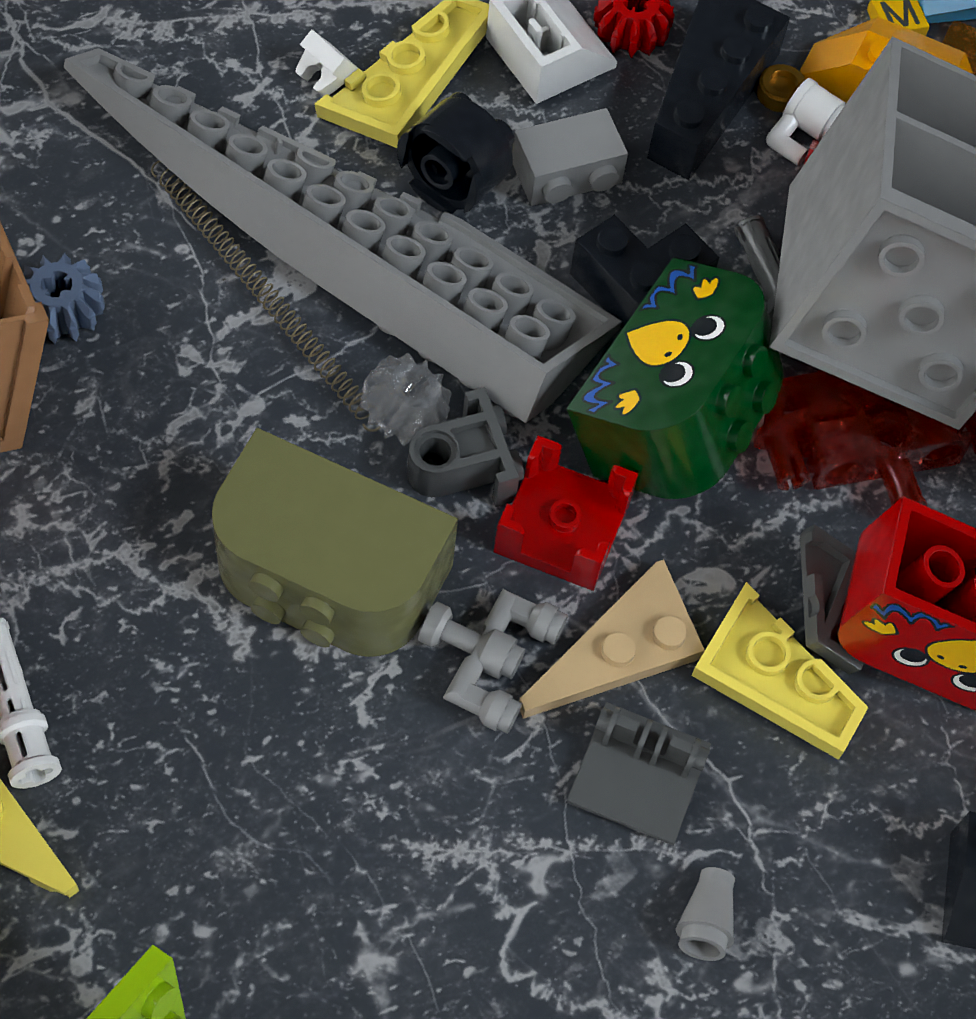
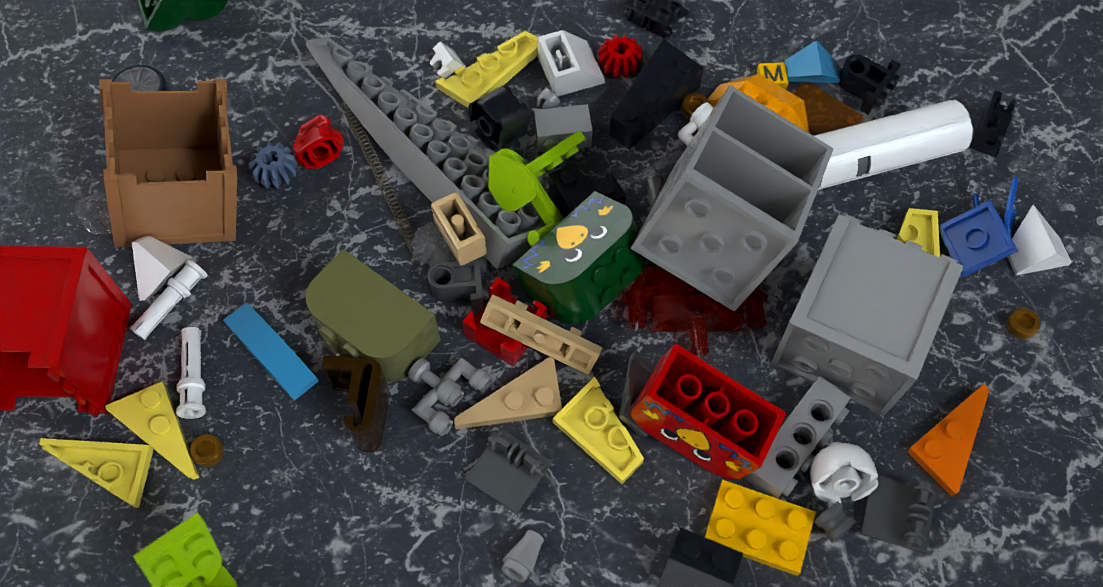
camera: 20 degrees right, 0 degrees up
(82, 839) = (207, 450): none -> pearl gold tile
(134, 244) = (318, 143): none -> red piece
(155, 637) = (271, 351): none -> dark azure slope
(332, 654) = (366, 397): none -> dark brown piece
(453, 359) = (458, 228): none -> tan brick
(527, 109) = (547, 99): none -> light grey hinge
(534, 264) = (516, 182): none -> lime plate
(637, 524) = (541, 334): none -> tan hinge

